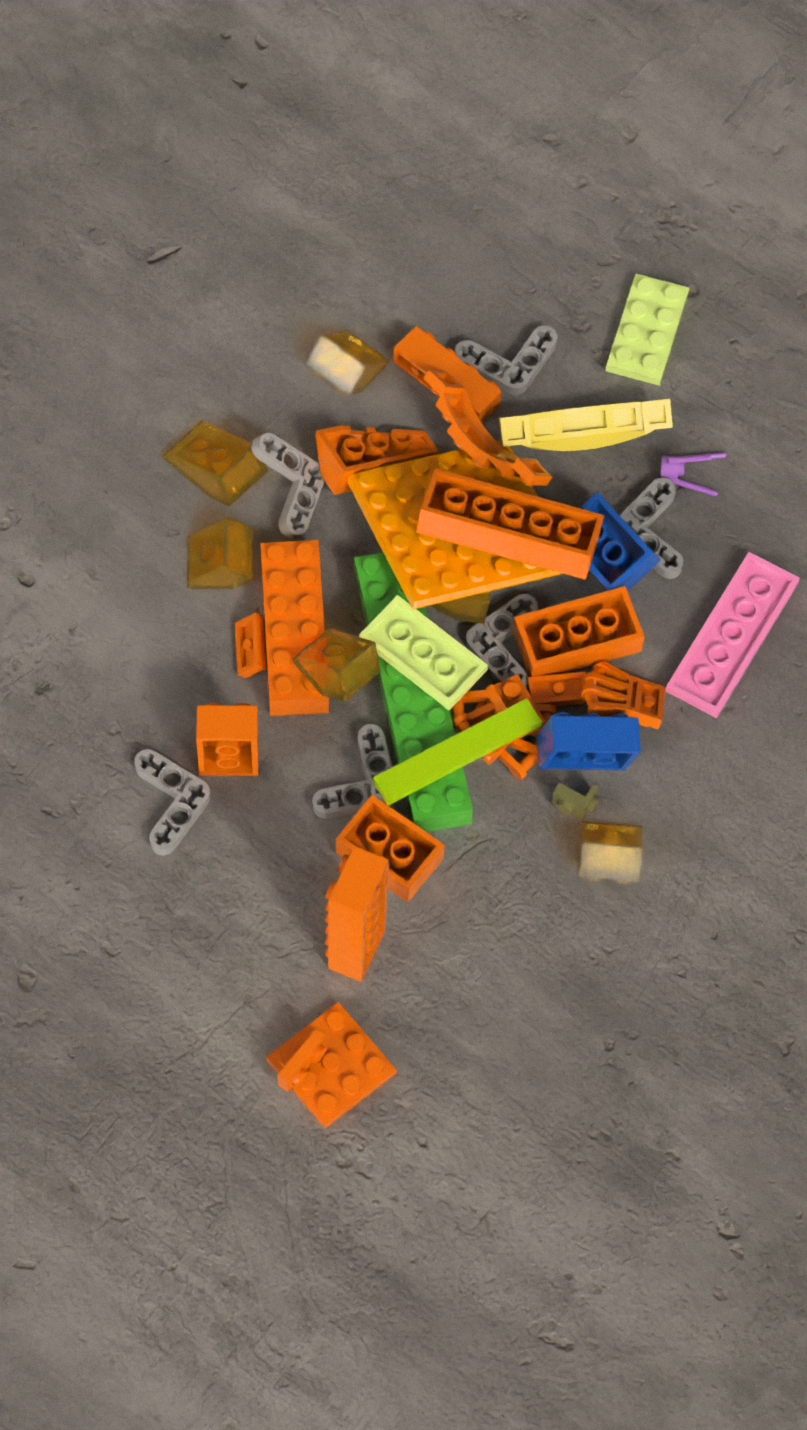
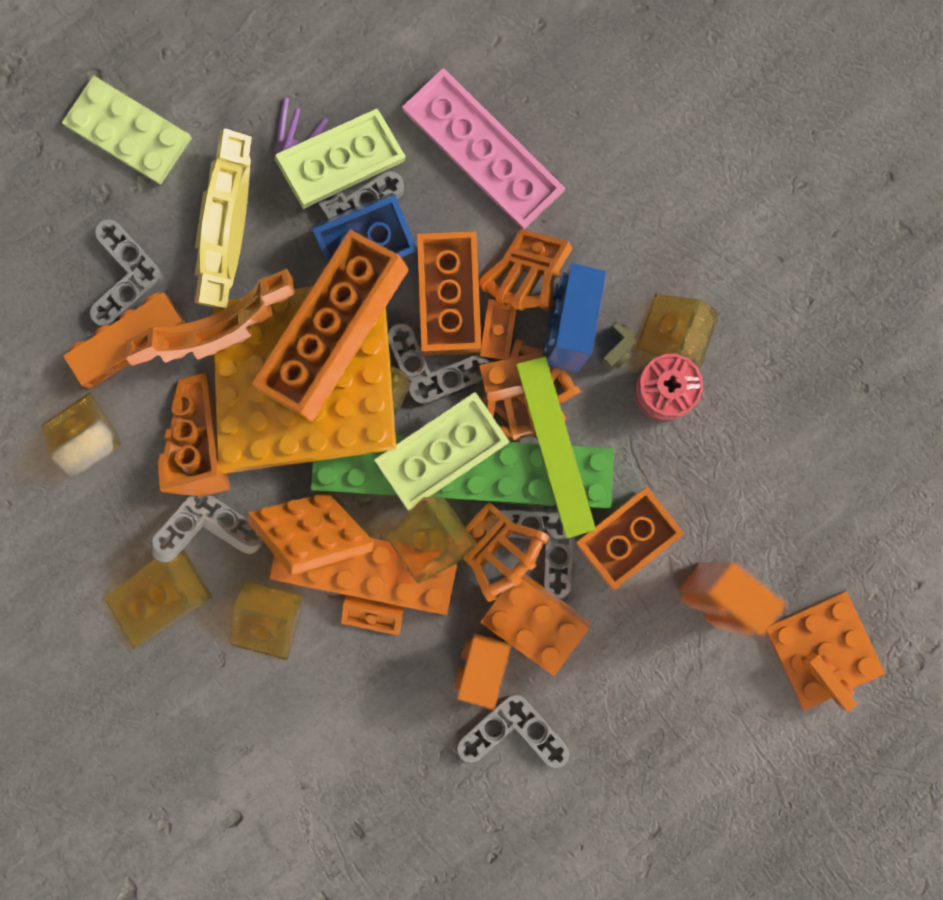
camera: 70 degrees left, 20 degrees up
(285, 785) = (536, 623): none -> orange brick
(314, 560) = (310, 532): none -> orange plate
(349, 716) = (491, 531): none -> orange plate
(546, 864) = (655, 399): none -> coral wheel
(679, 509) = (339, 158): none -> yellowish green plate

